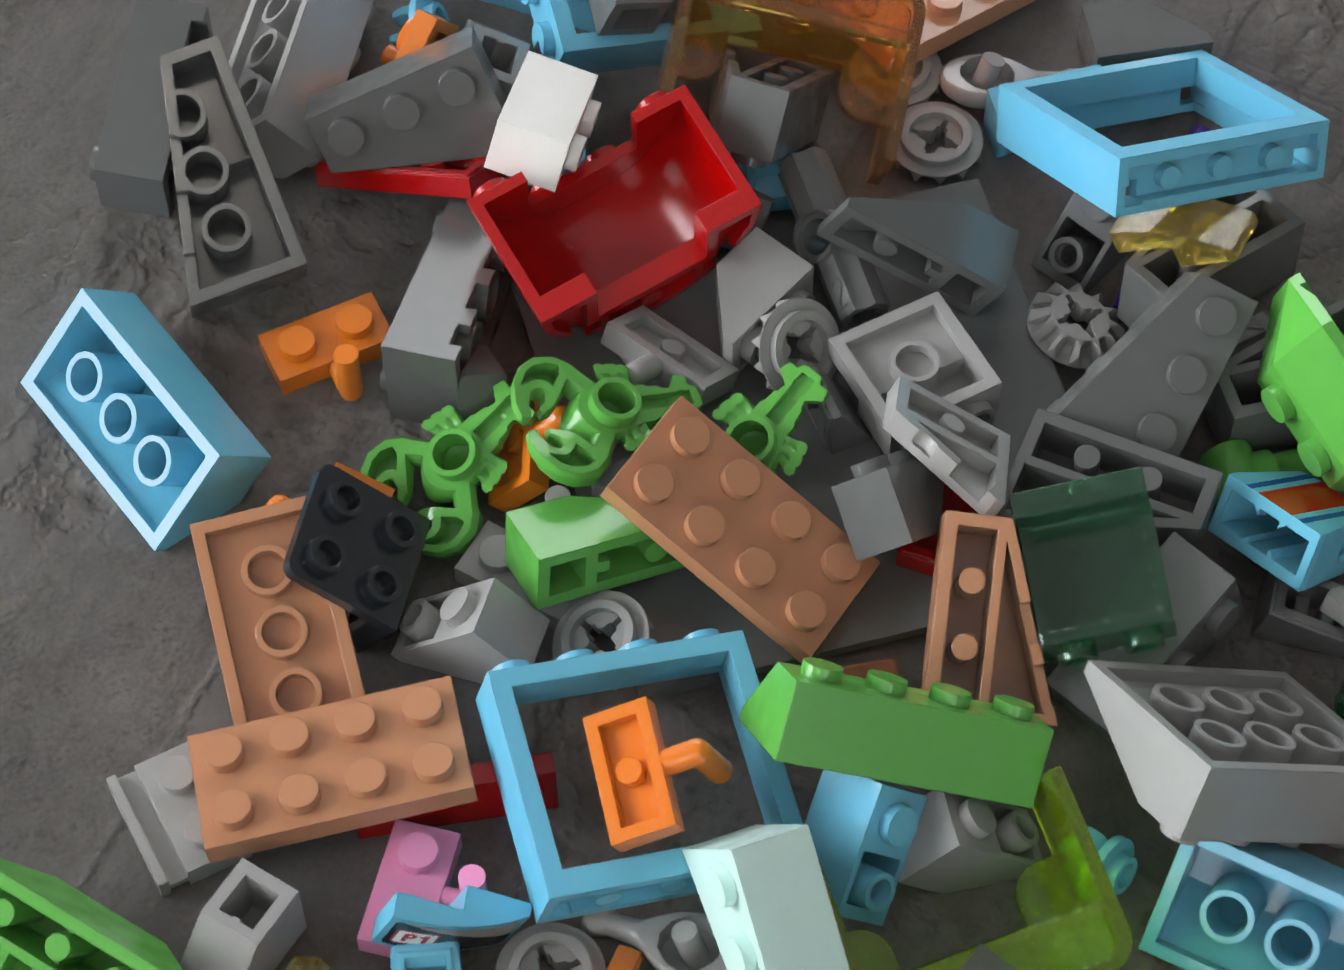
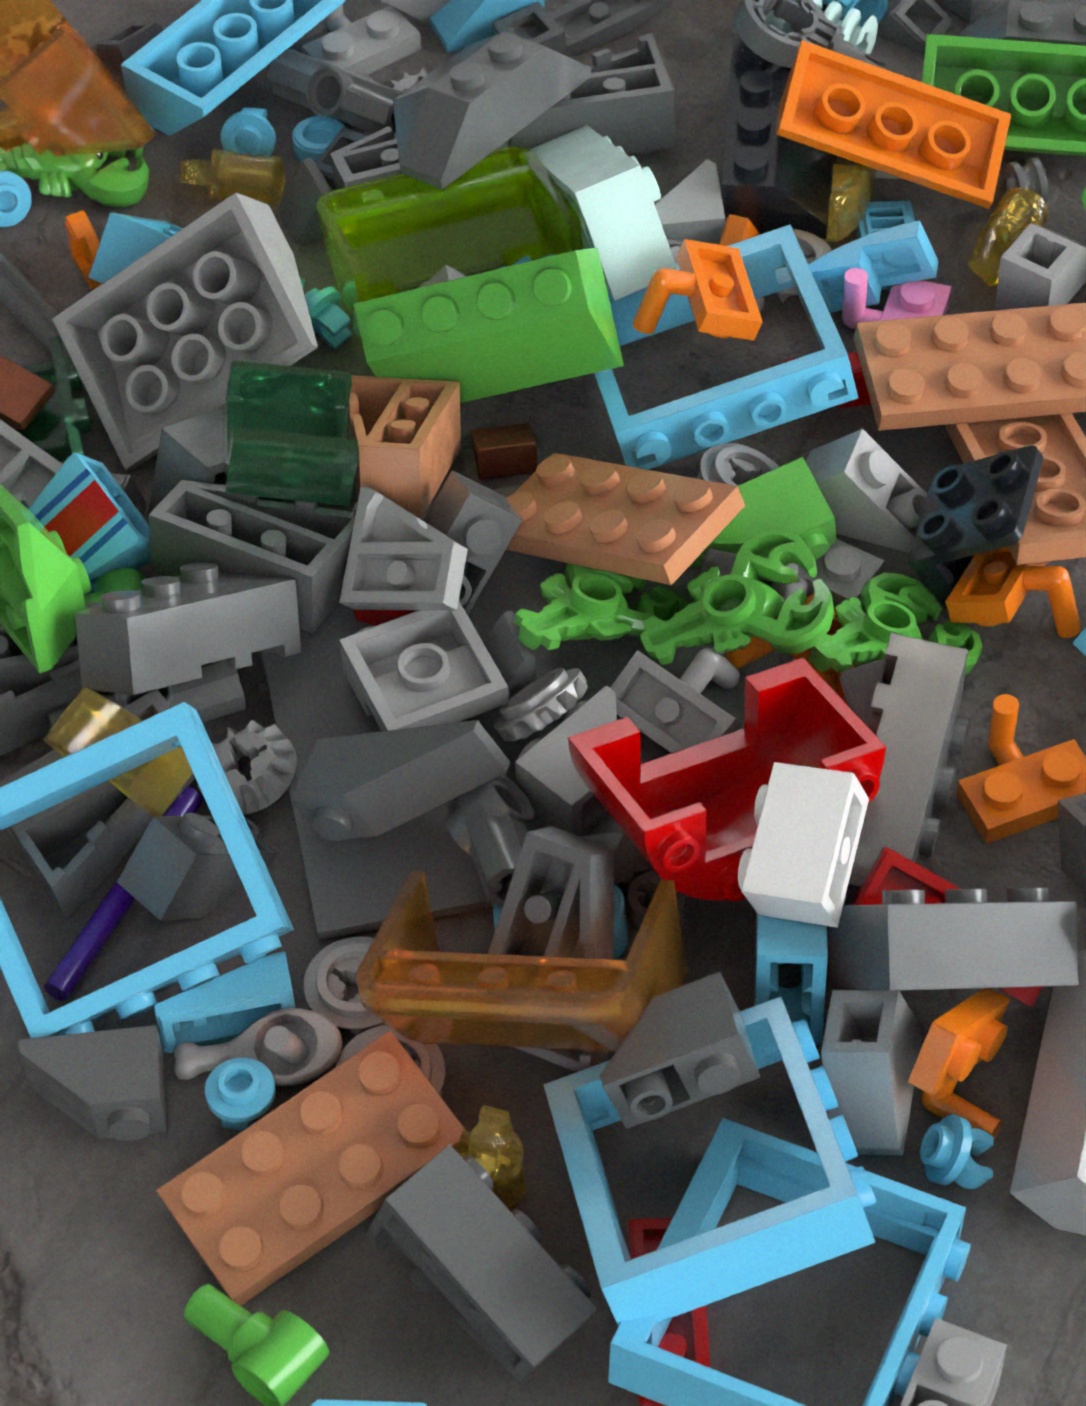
camera: 175 degrees left, 5 degrees down
(1018, 35) = (239, 1092): none -> medium azure plate

